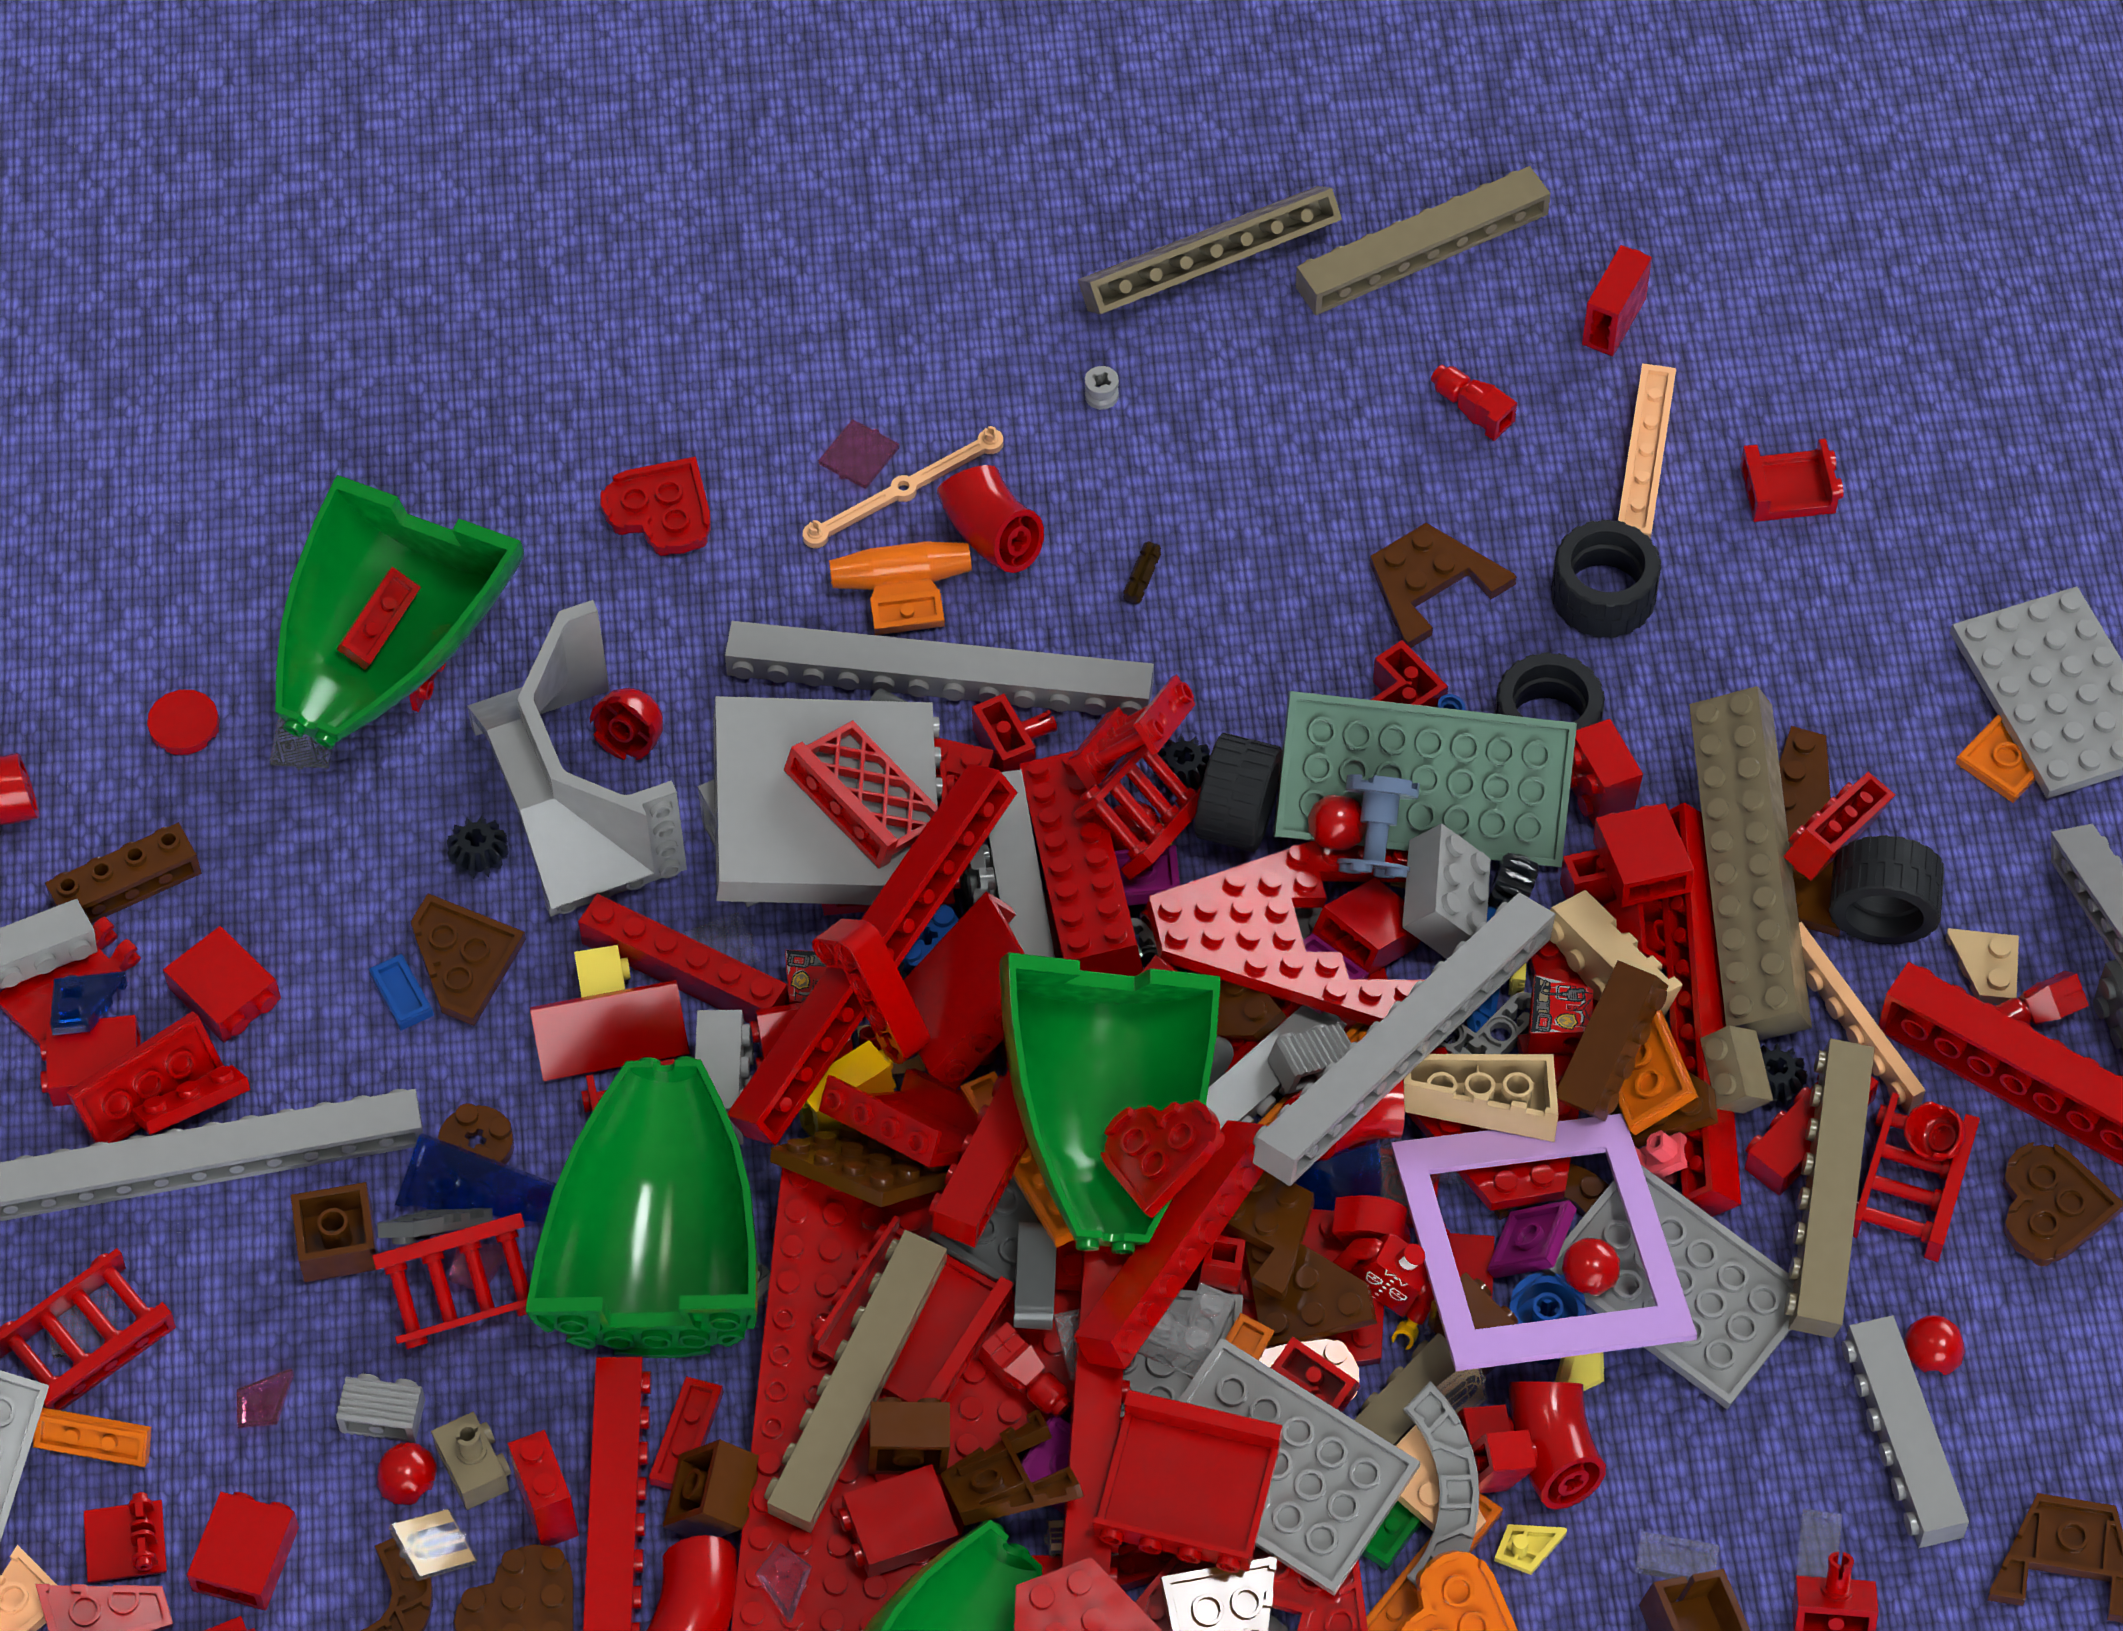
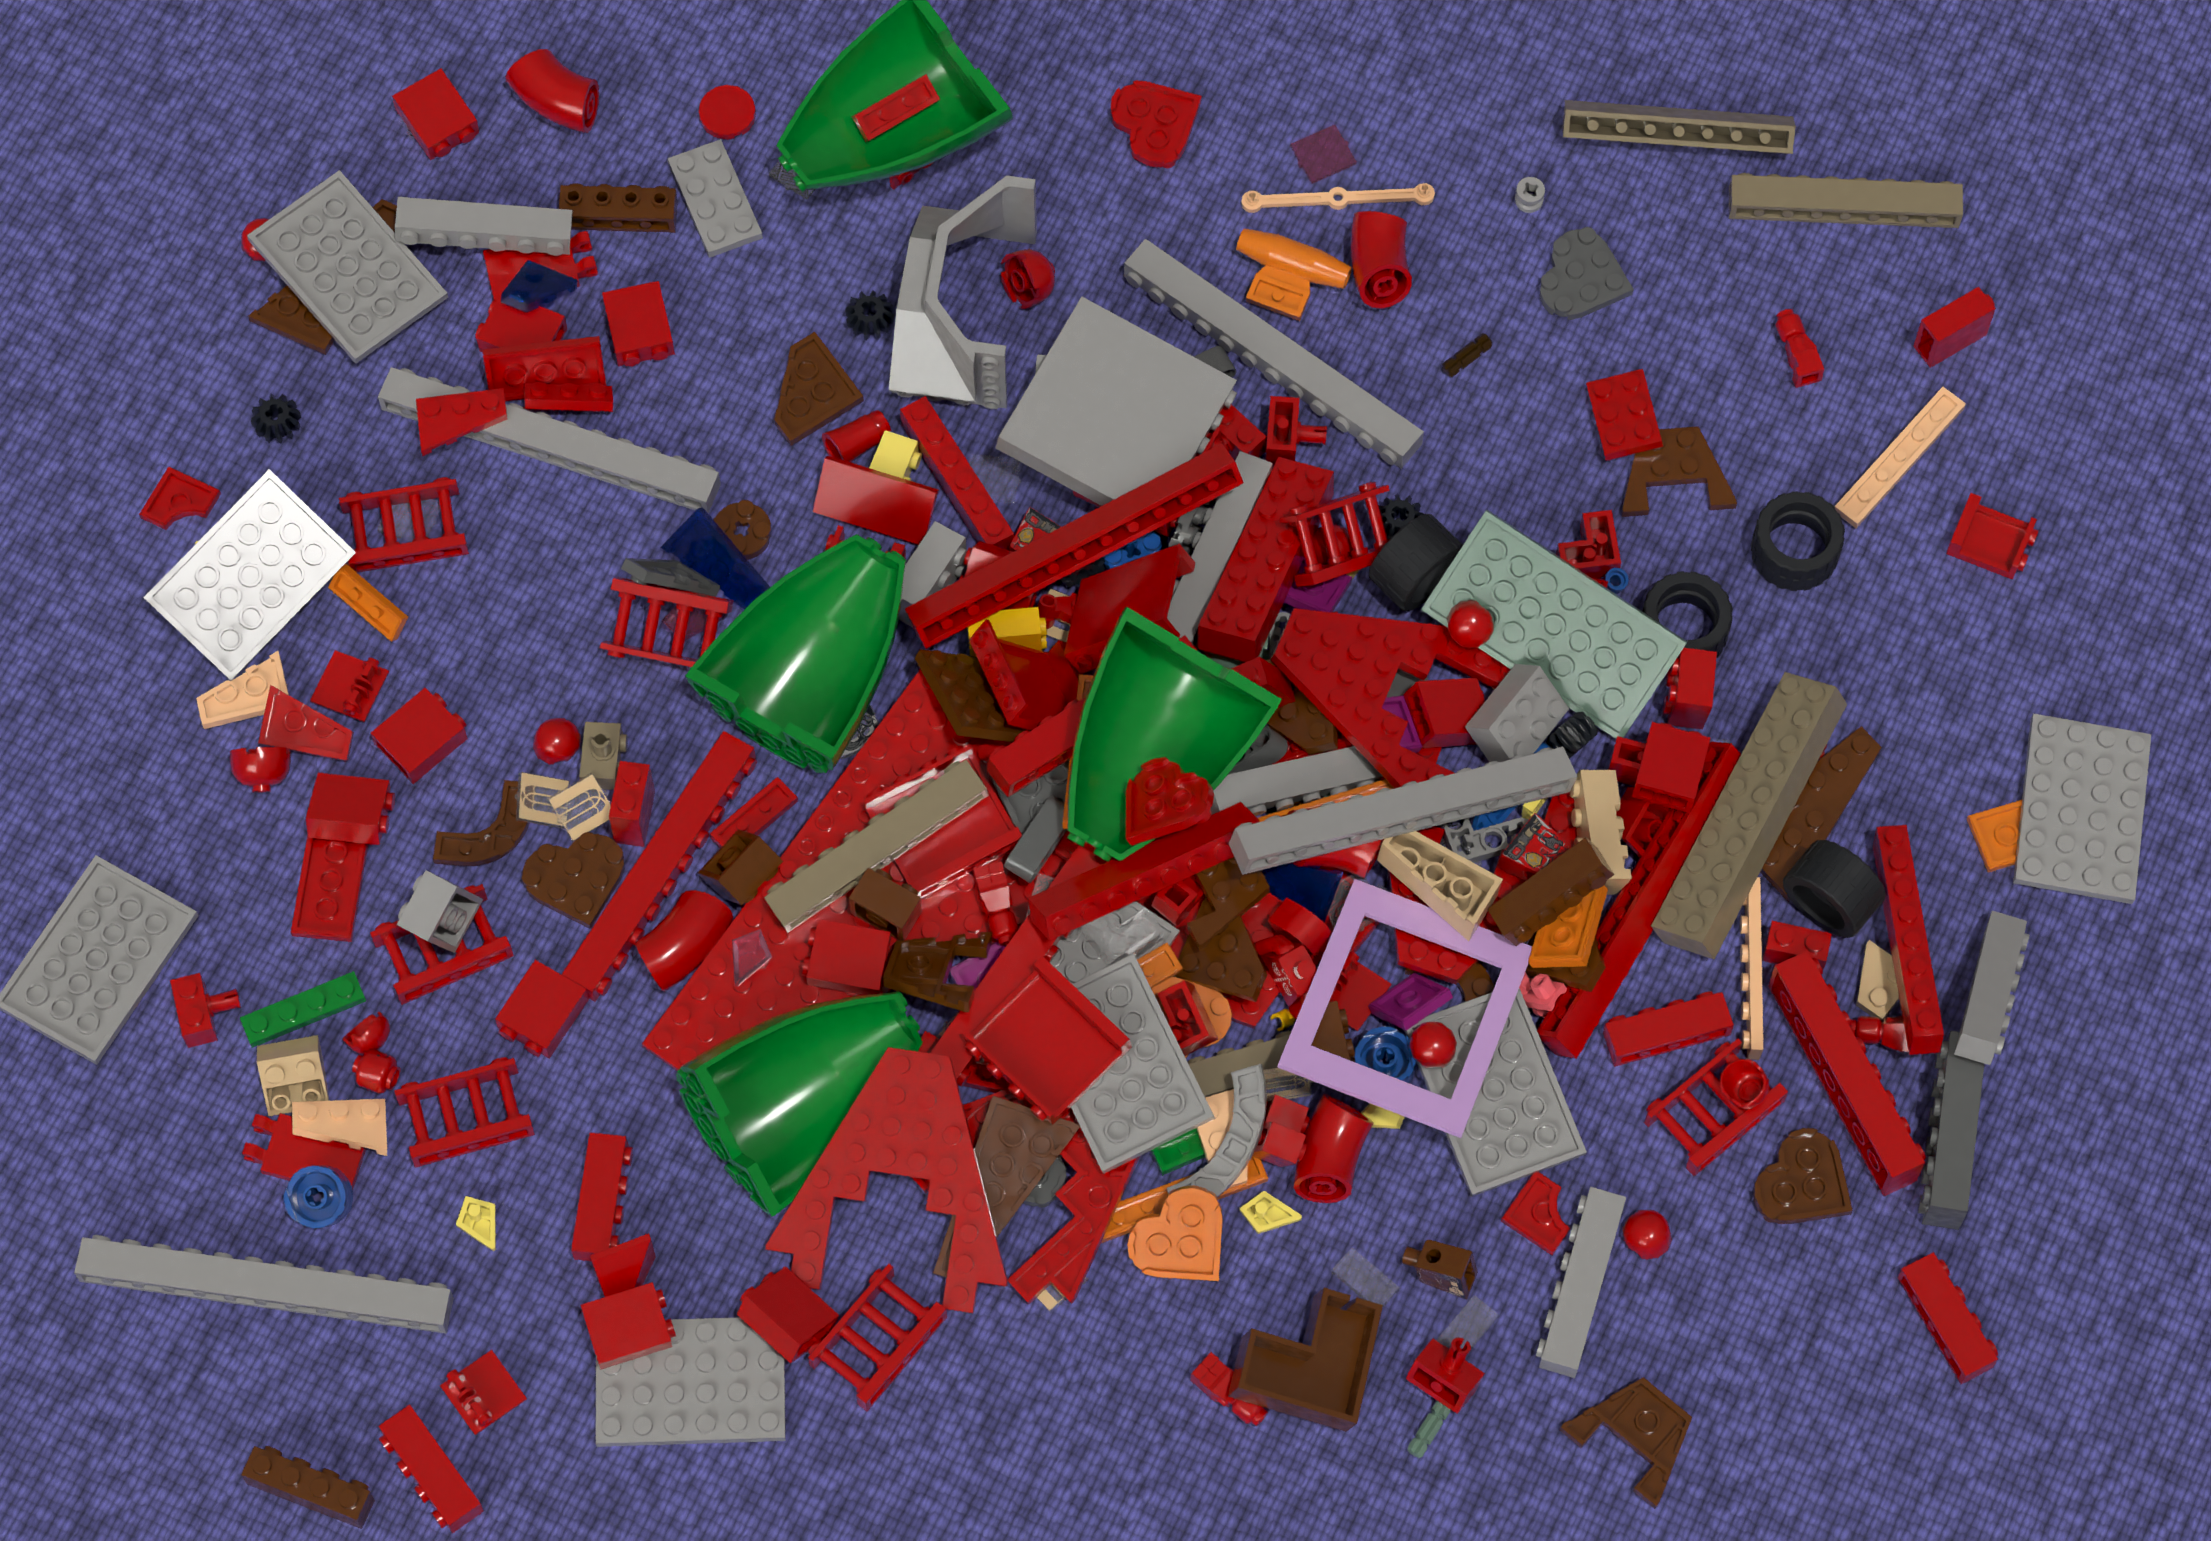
camera: 30 degrees right, 10 degrees up
(74, 1181) = (455, 415): none -> red wing
(225, 815) = (715, 198): none -> light grey plate
(263, 1400) = (494, 637): clear pink piece -> none
(334, 1231) = (604, 543): reddish brown brick -> none
(381, 1408) = (565, 686): light grey brick -> none
(401, 992) = (756, 394): blue tile -> none
(484, 1526) = (581, 806): none -> piece
(543, 977) = (856, 437): none -> red plant
(845, 804) = (1118, 420): red fence -> none
(877, 985) = (1056, 572): red beam -> none
(1122, 733) = (1365, 478): red fence -> none
(1207, 439) = (1582, 276): none -> dark grey plate
(1304, 1056) = (1331, 784): light grey brick -> none
(1344, 547) = (1624, 414): none -> red plate
(1379, 811) = (1498, 634): sand blue piece -> none
(1736, 1069) = (1634, 960): dark tan brick -> none
(1754, 1495) = (1443, 1267): none -> reddish brown torso
(1784, 1074) = (1671, 970): black gear -> none
(1806, 1390) = (1536, 1214): none -> red tile
(1830, 1188) = (1643, 1082): dark tan brick -> none
(1837, 824) = (1832, 822): red brick -> none
(1876, 969) = (1790, 940): none -> red brick
(2002, 906) = (1908, 940): none -> red brick

